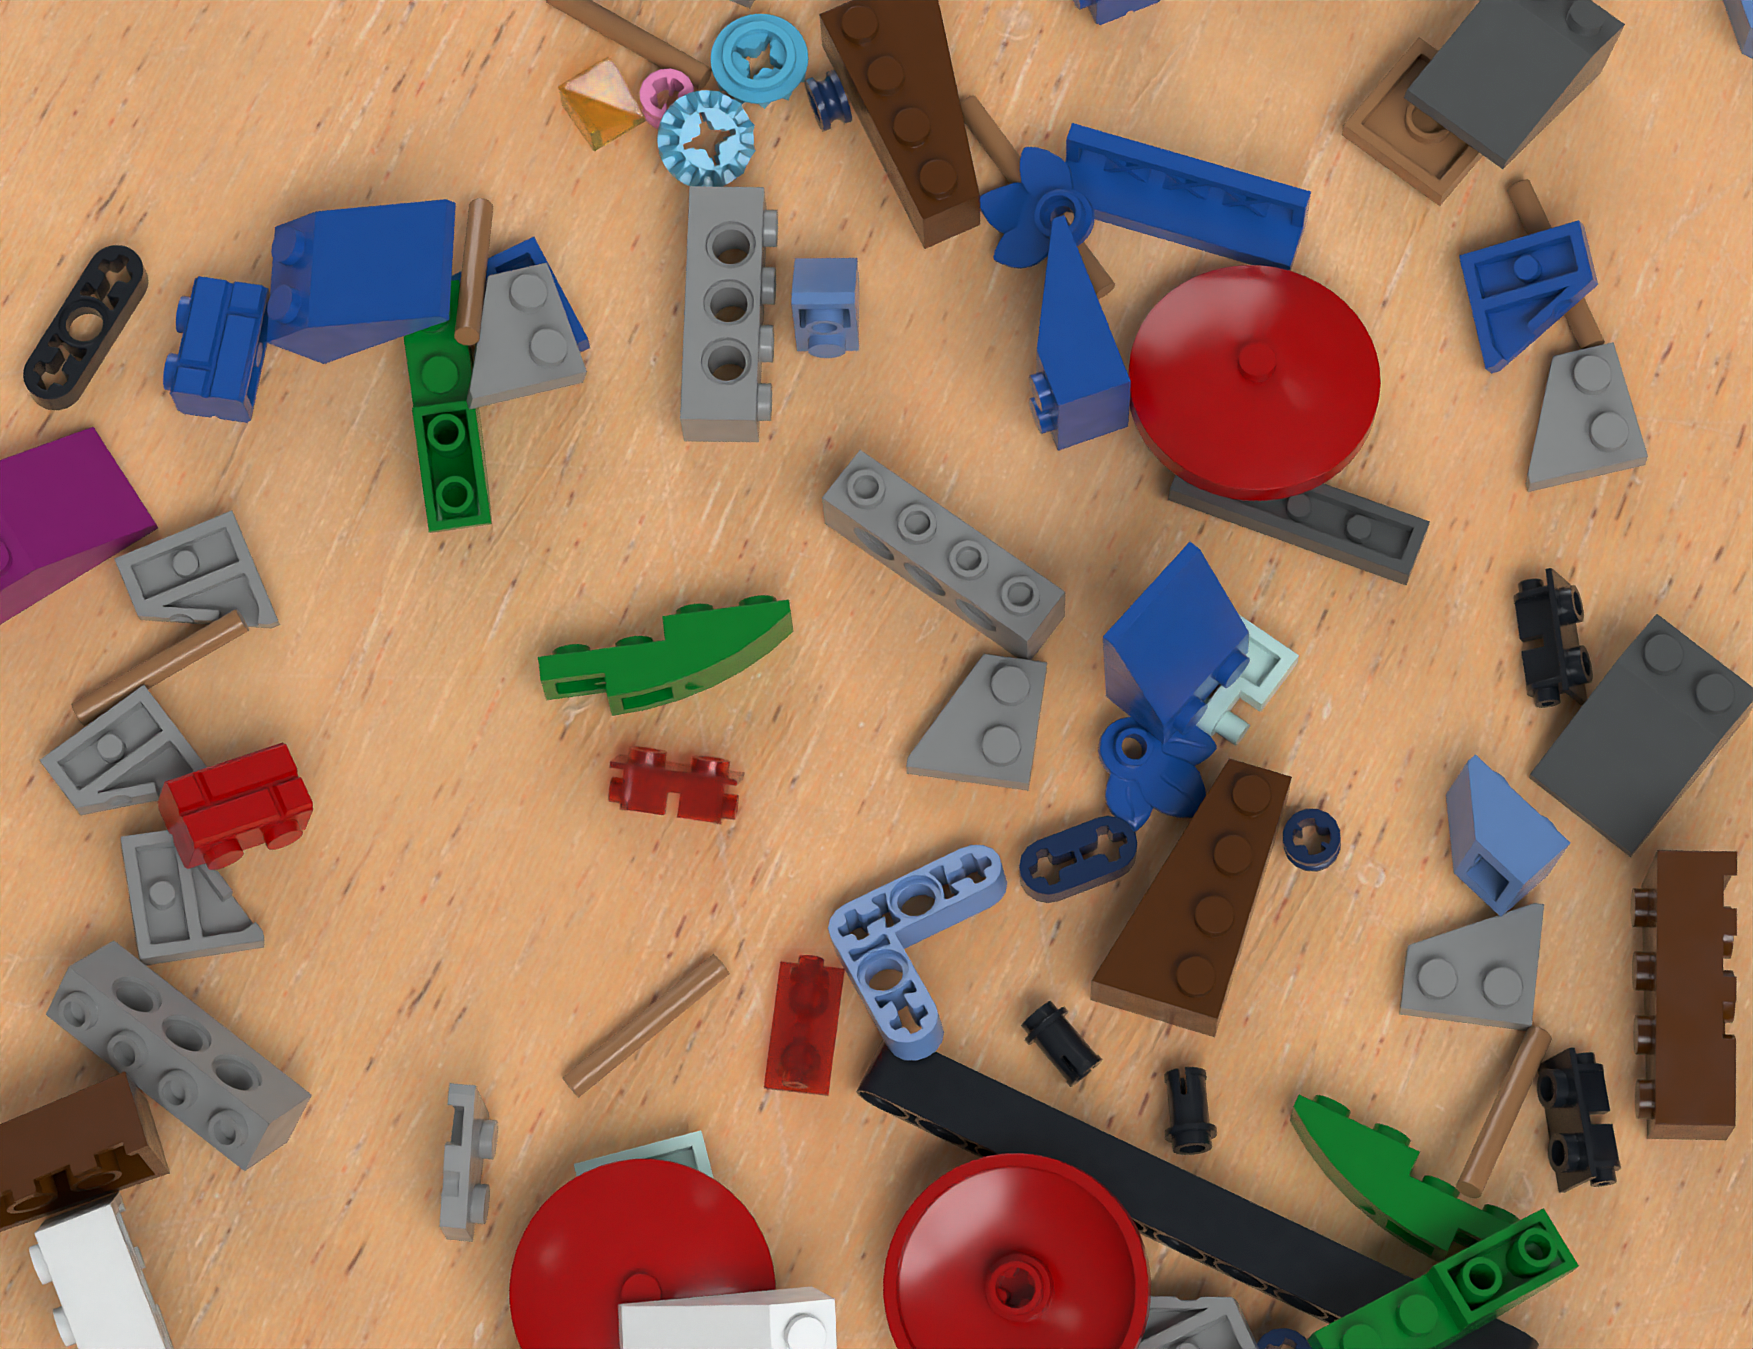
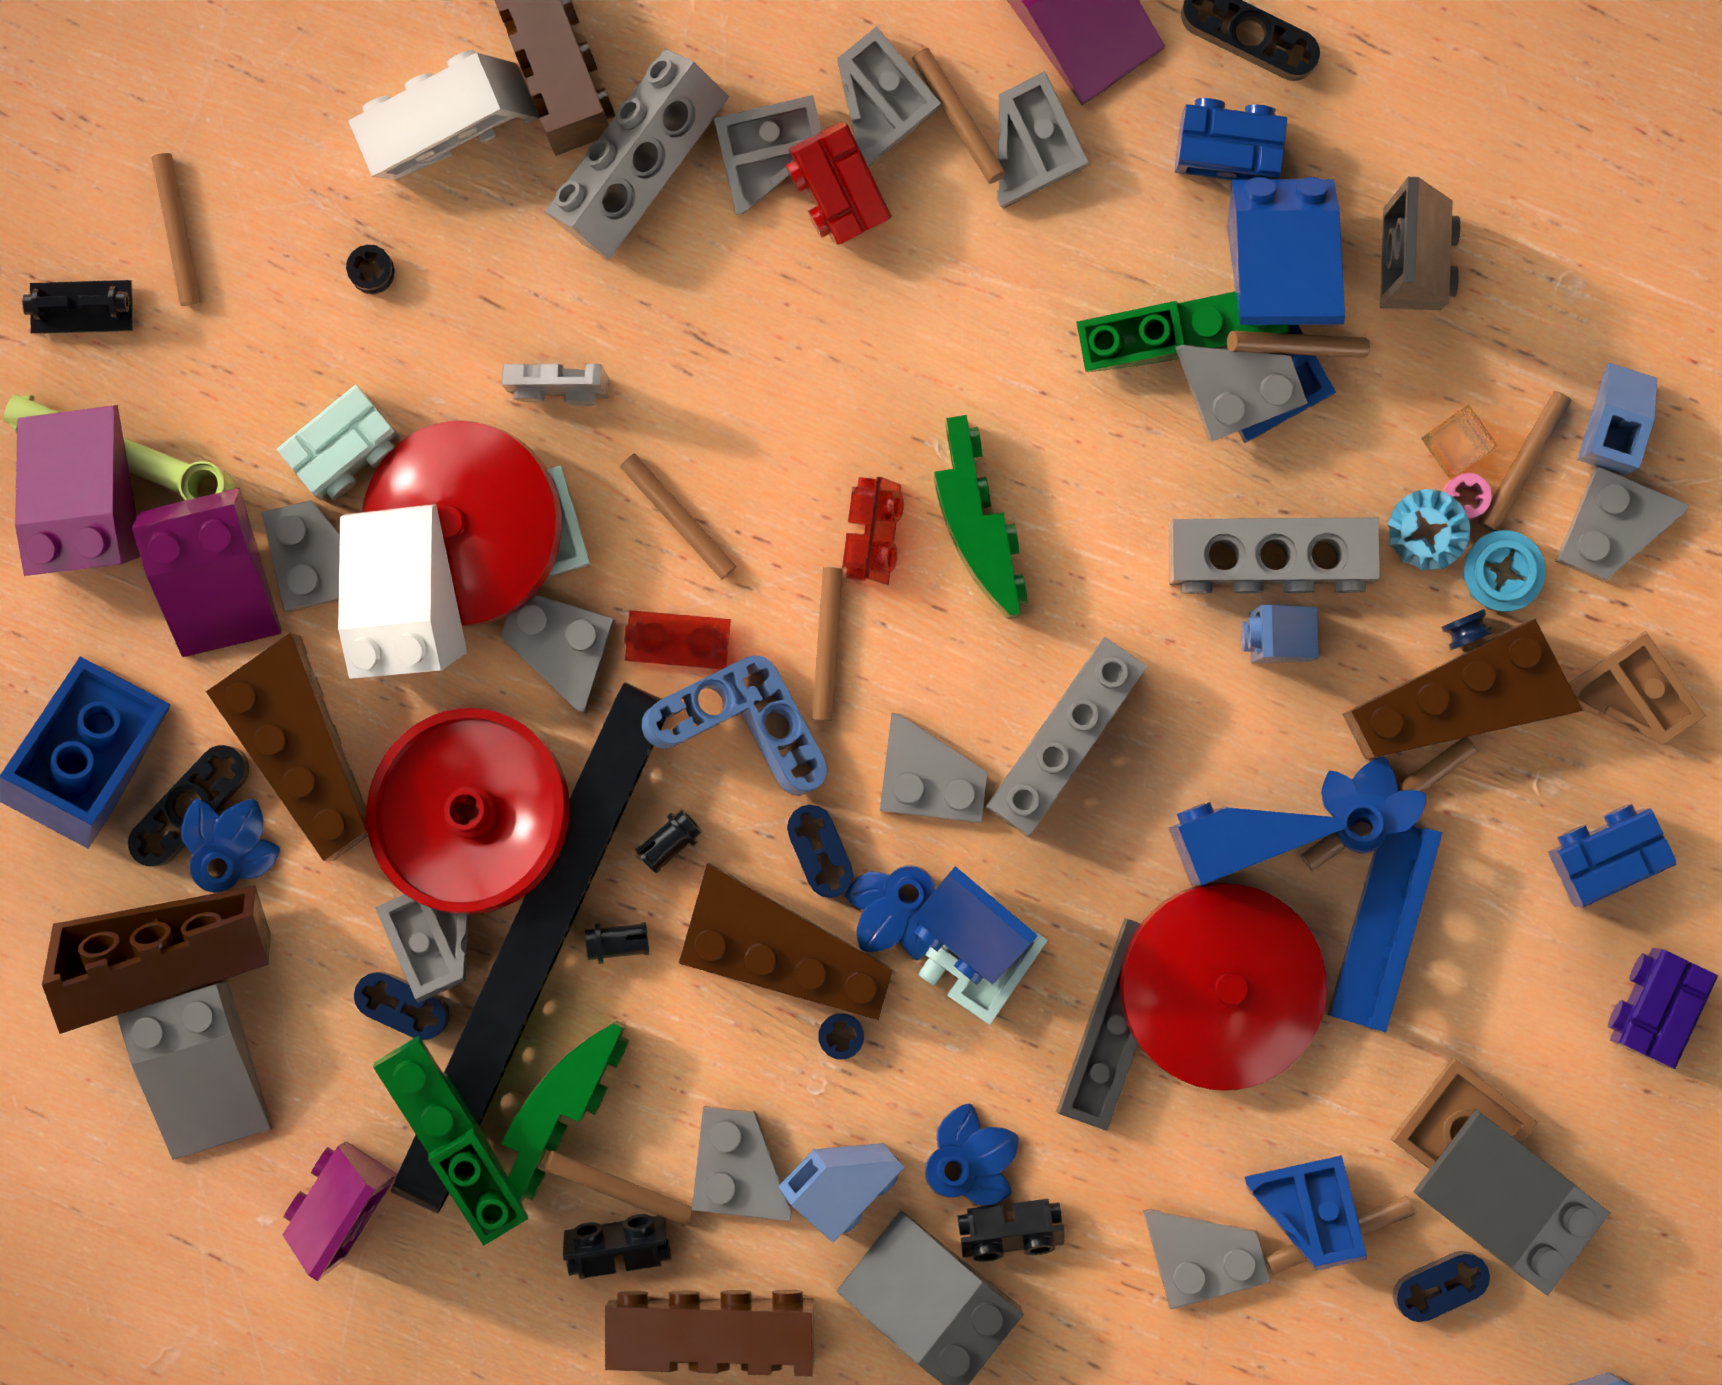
camera: 85 degrees right, 15 degrees up
(367, 141) = (1418, 248): none -> dark grey slope
(806, 1175) = (560, 645): none -> light grey wing
(816, 845) = (827, 644): none -> medium nougat bar
(1462, 678) = (979, 1155): none -> blue plate
(1627, 147) = (1435, 1275): none -> dark blue beam

